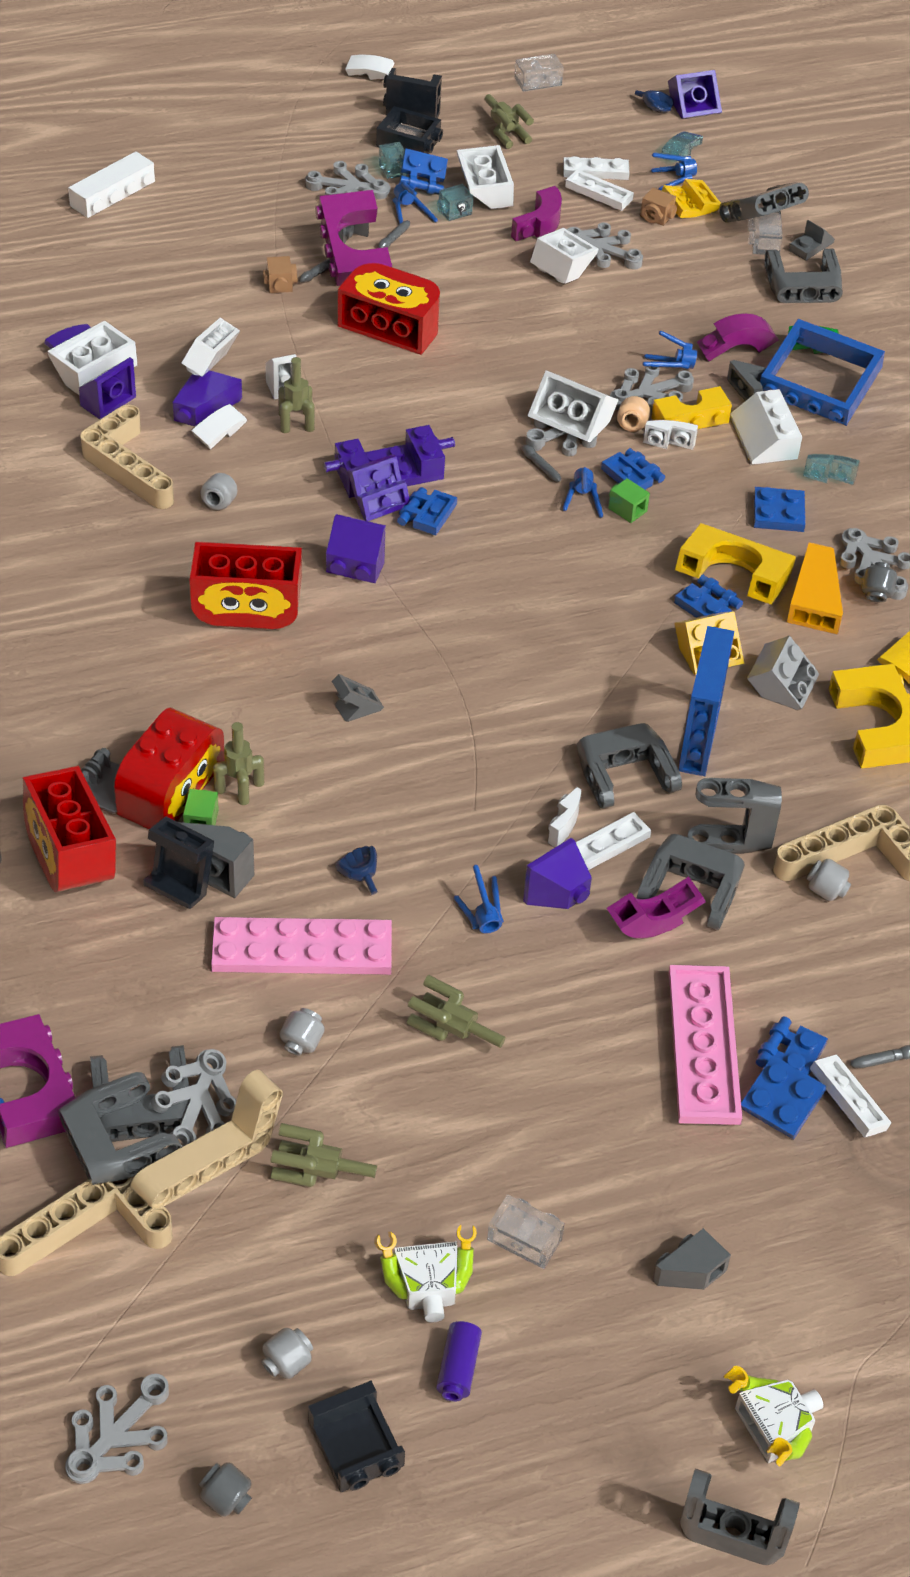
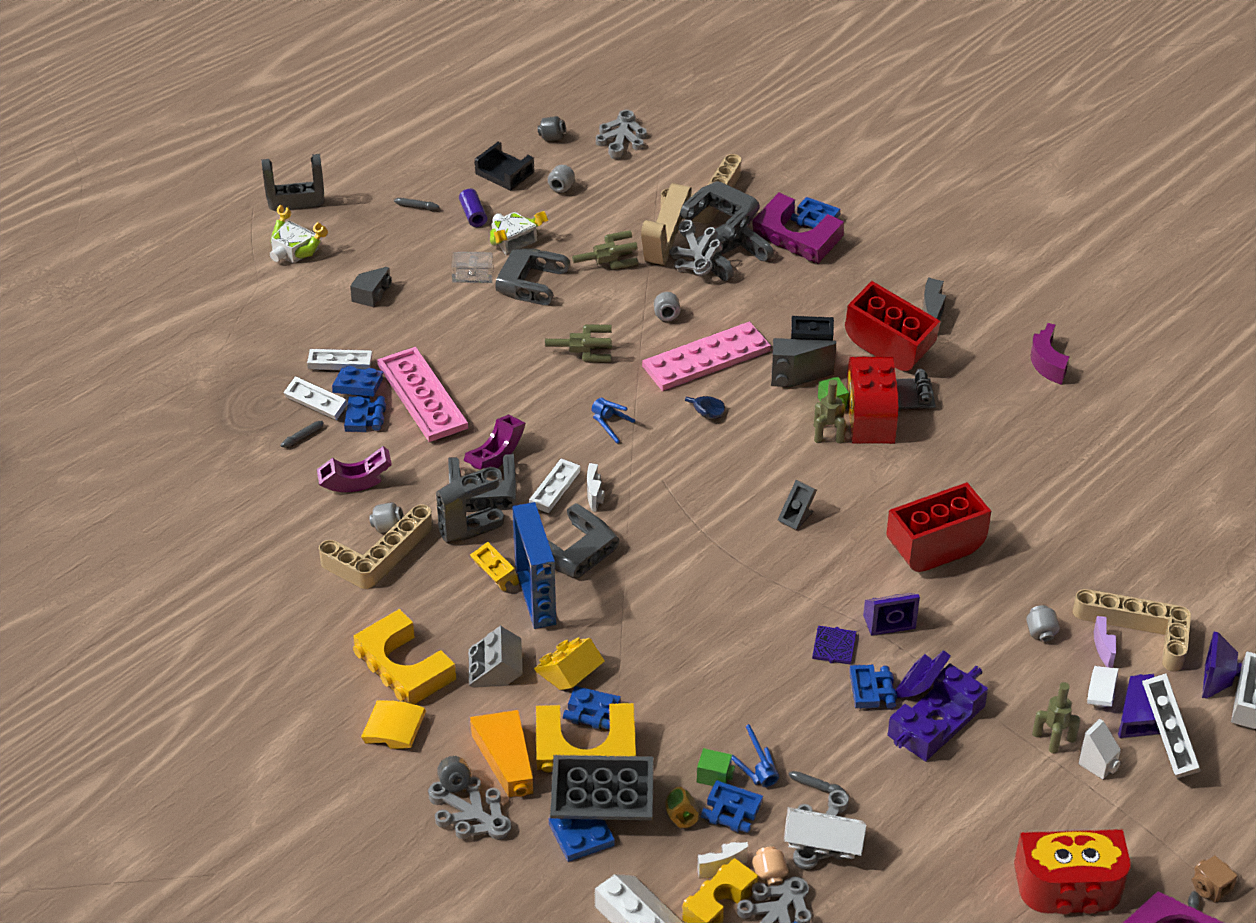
camera: 155 degrees right, 5 degrees down
(181, 452) = (1104, 643): none -> lavender slope
(428, 566) = (834, 645): none -> dark purple piece
(466, 1196) = (516, 269): none -> dark grey connector
(521, 1413) = (416, 203): none -> dark grey piece
(558, 878) = (570, 437): dark purple slope -> none
(680, 482) = (681, 808): none -> pearl gold rock
(732, 760) = (495, 565): none -> yellow hinge
(749, 506) = (602, 787): none -> dark grey slope
(791, 1150) = (336, 359): none -> white plate
(826, 466) = (563, 888): clear light blue slope -> none
(843, 954) = (354, 476): none -> magenta arch

